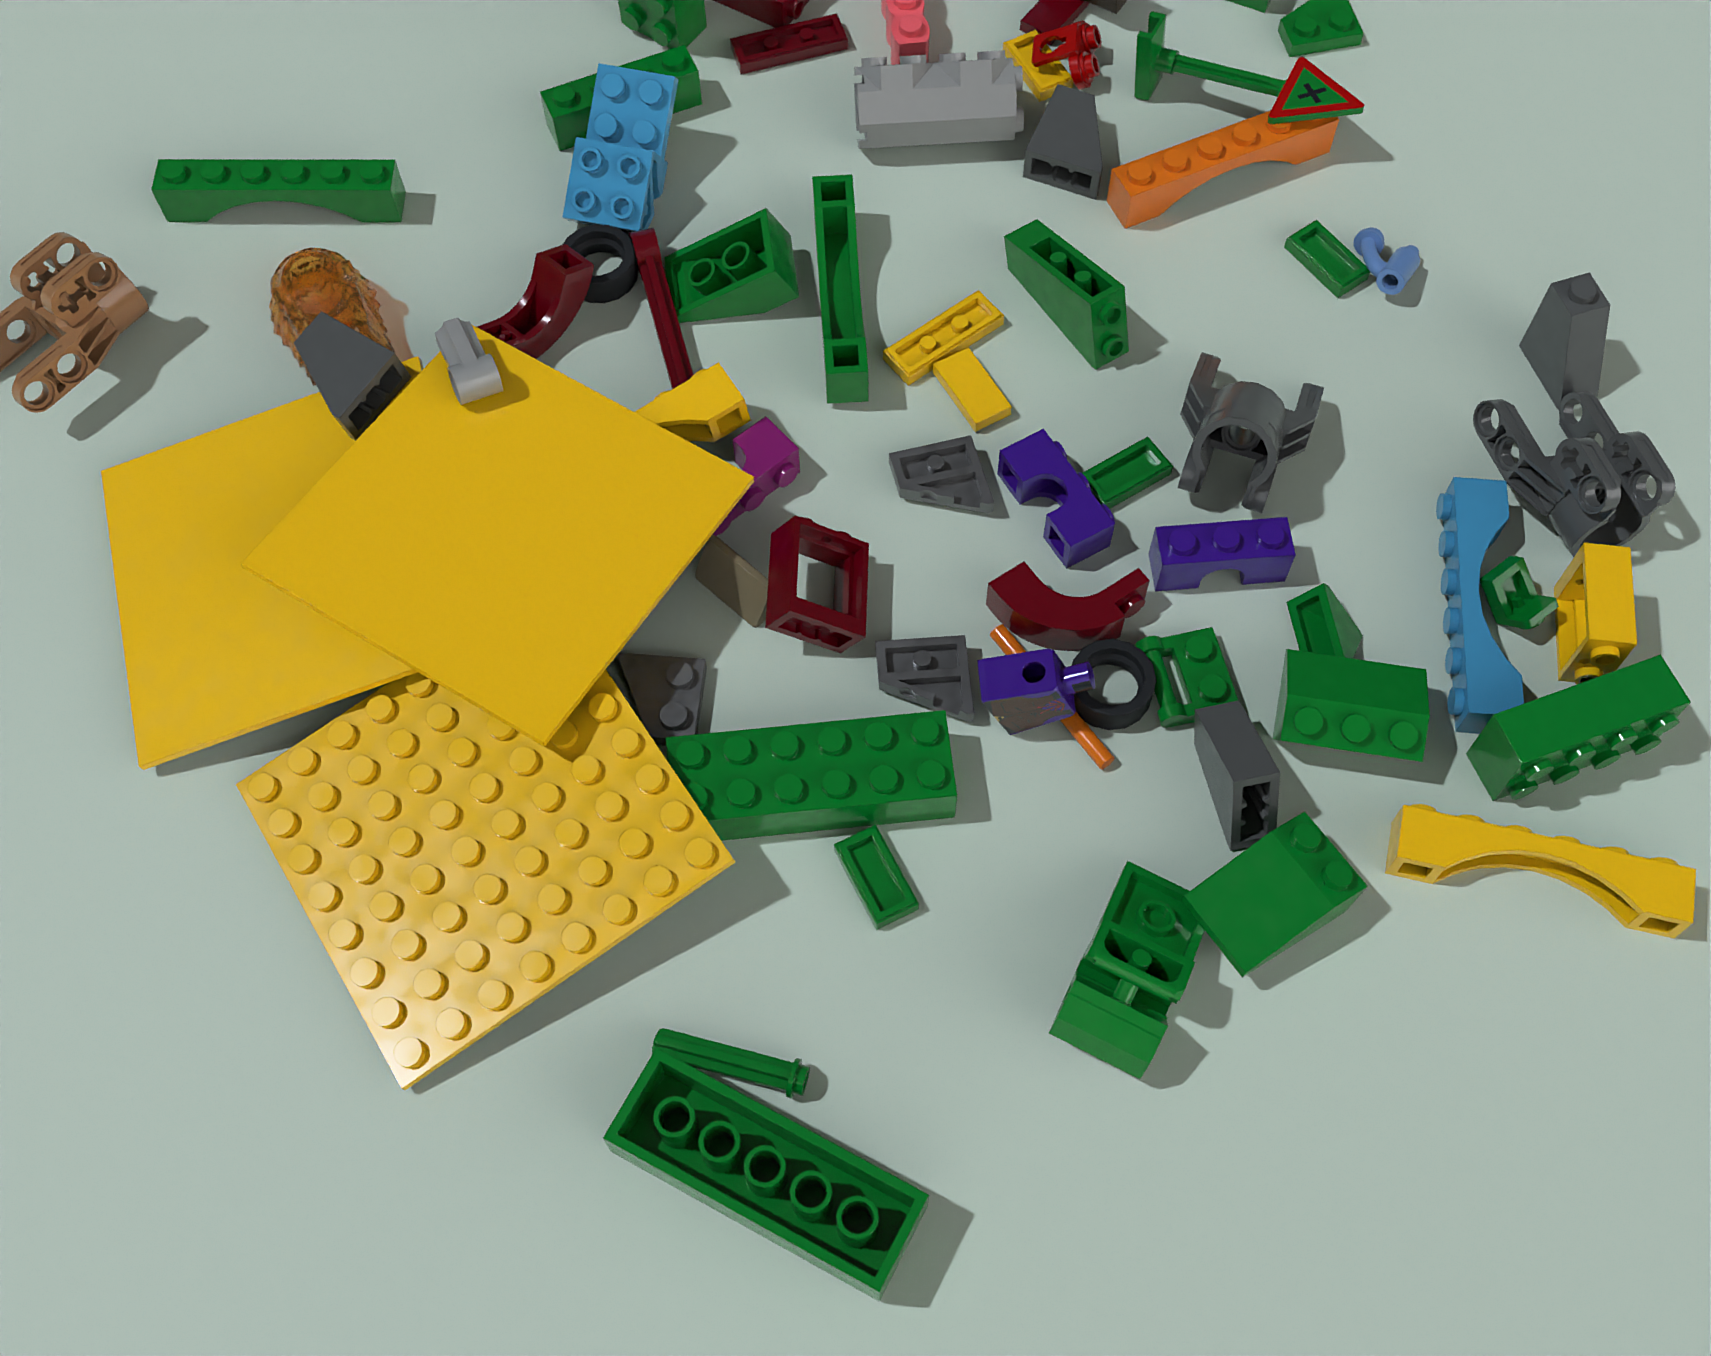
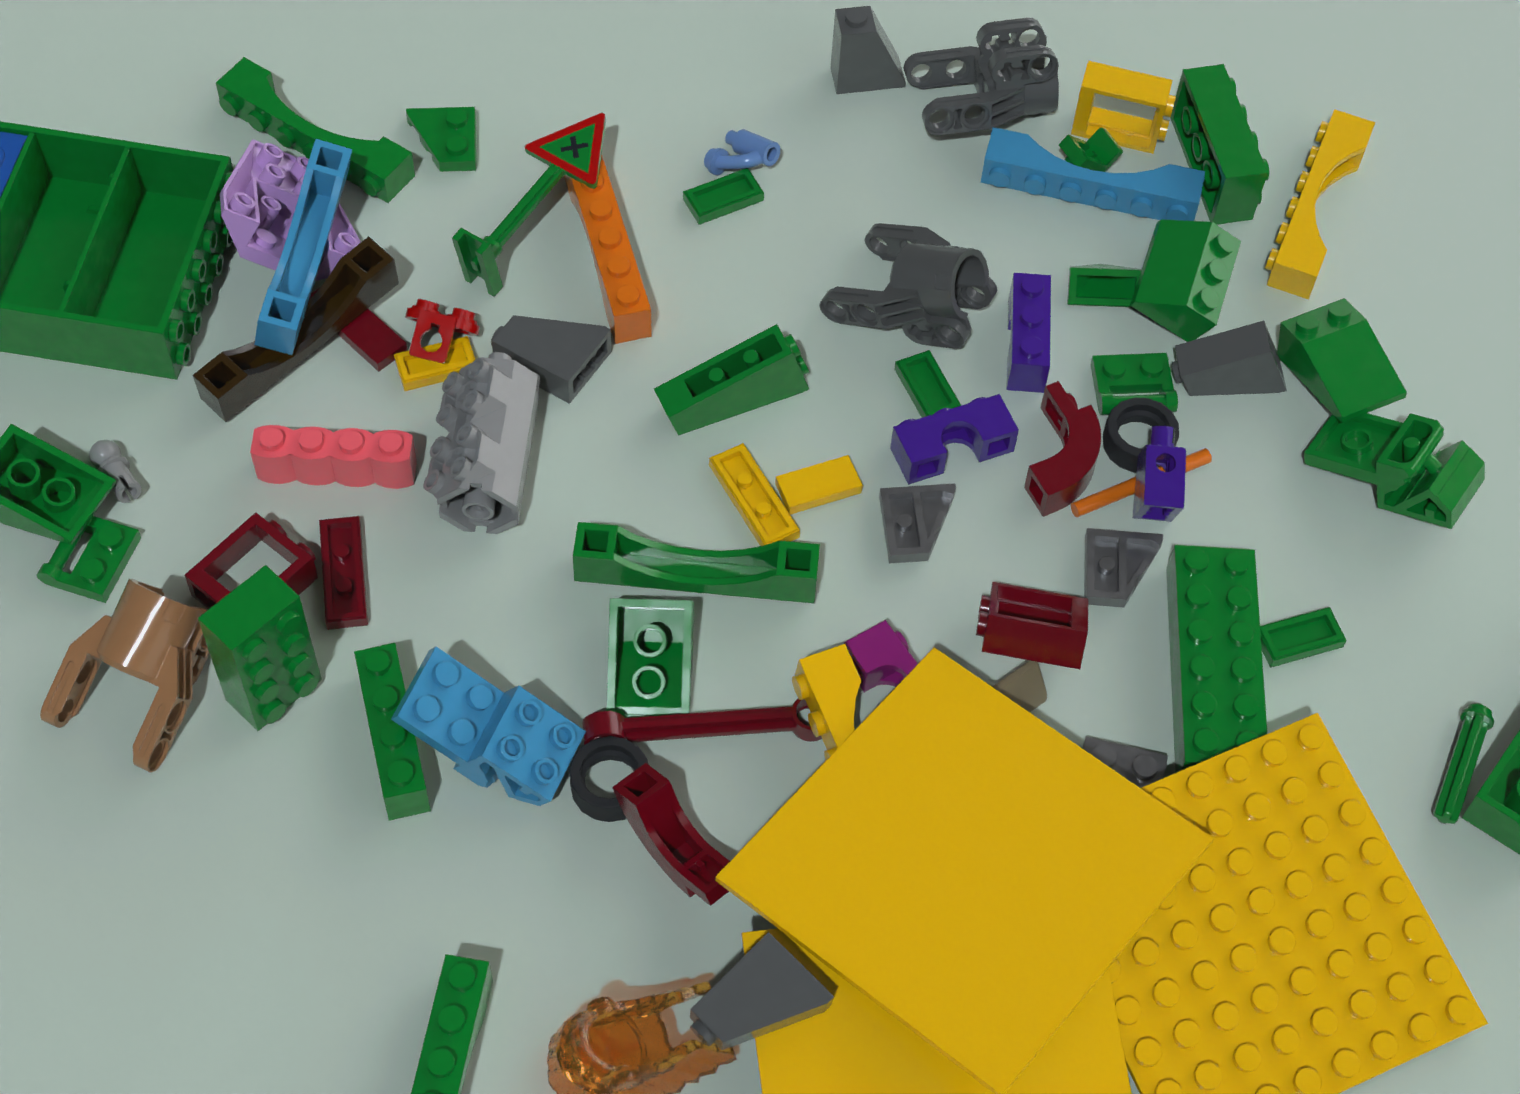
camera: 85 degrees left, 5 degrees down
(469, 368) = (797, 864): light grey piece -> none

